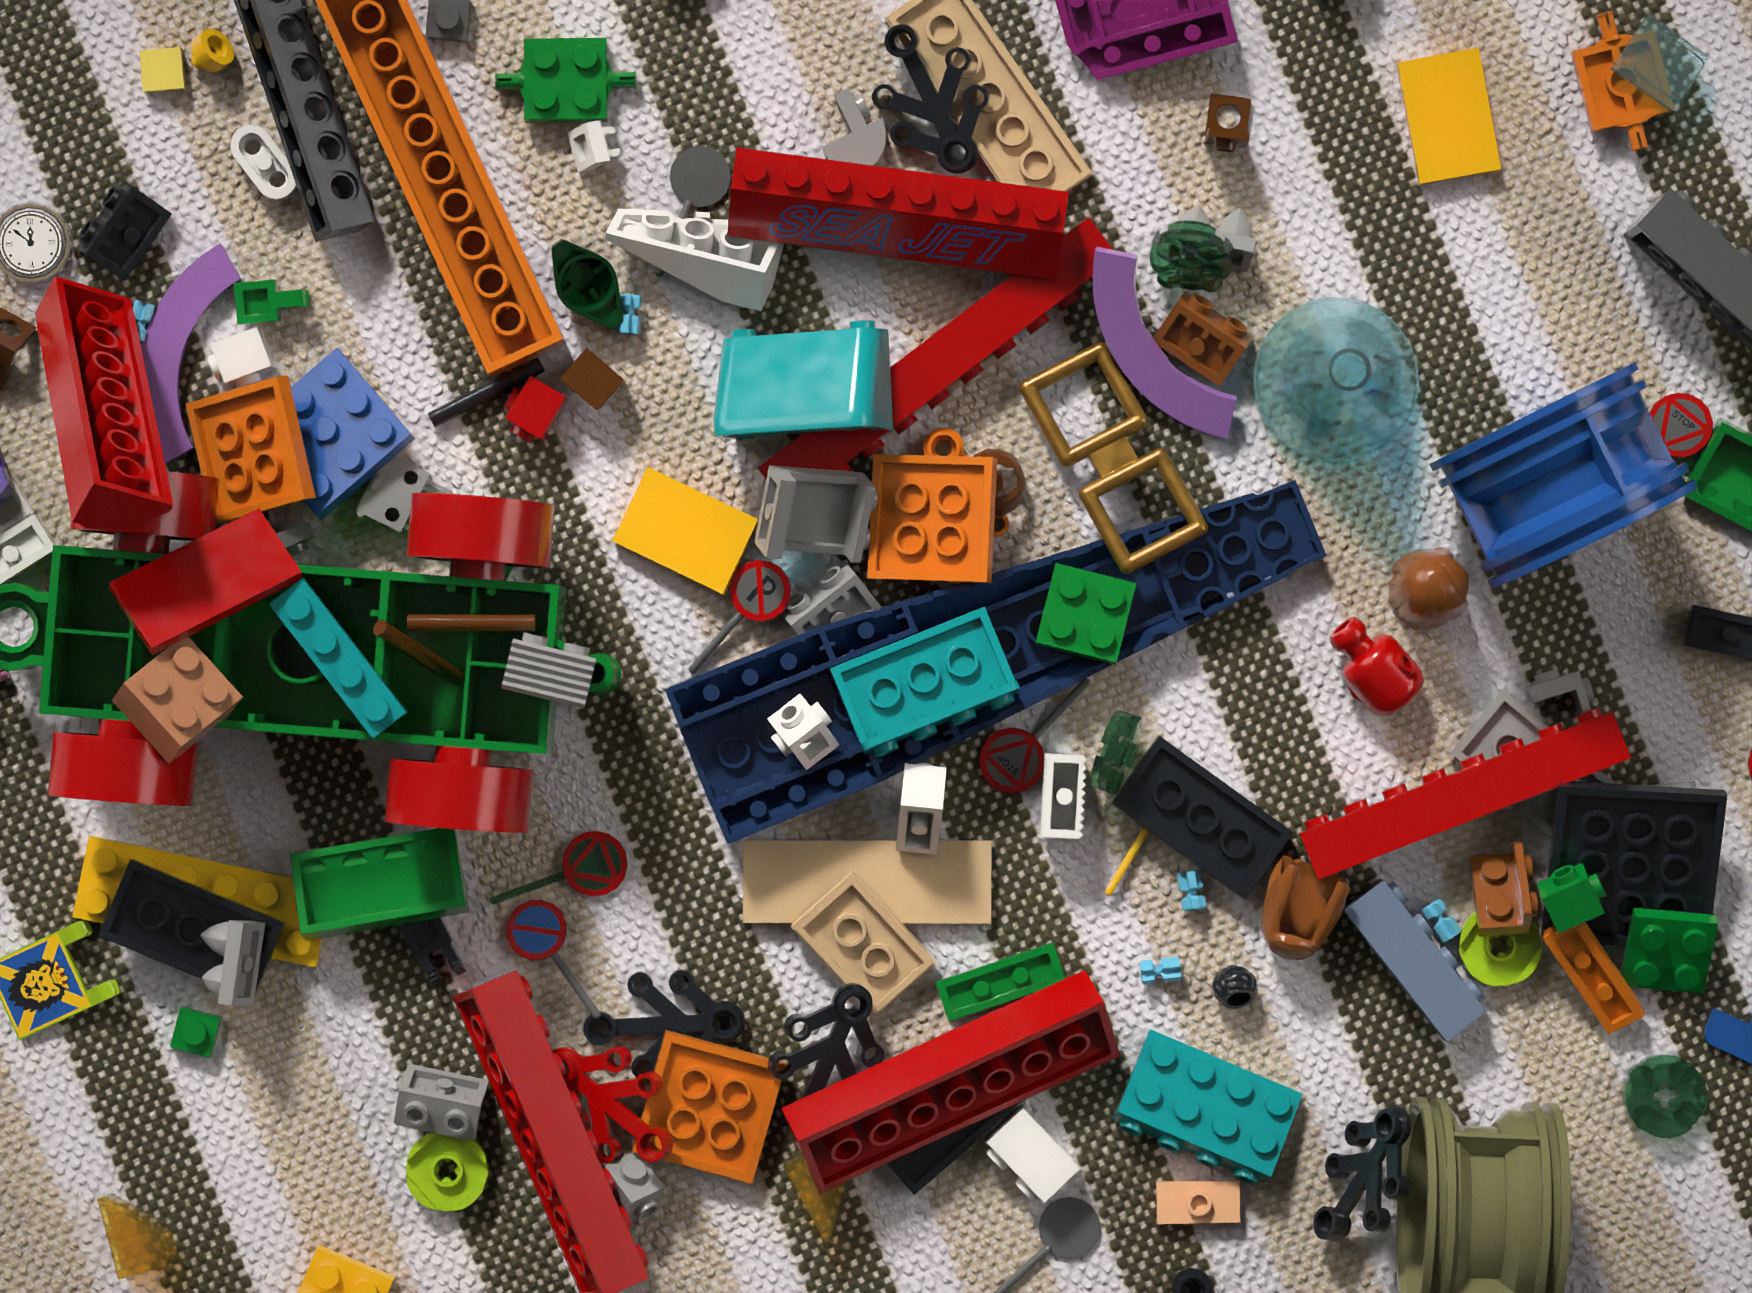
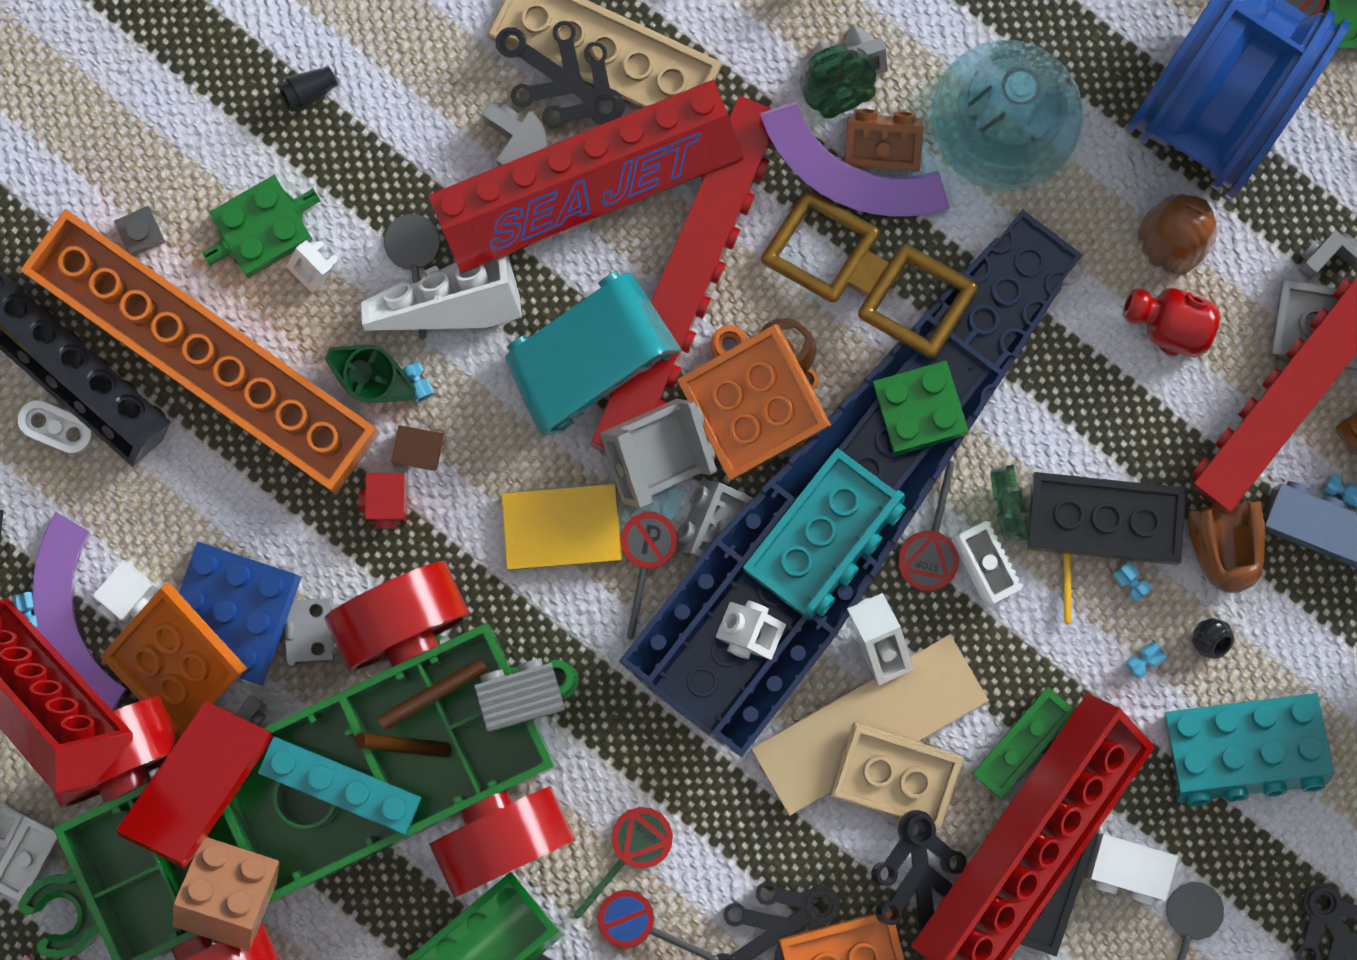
camera: 35 degrees left, 5 degrees down
(262, 301) = (116, 539): green plate -> none
(486, 392) = (337, 509): black bar -> none
(1198, 1201) = (1285, 829): light nougat plate -> none

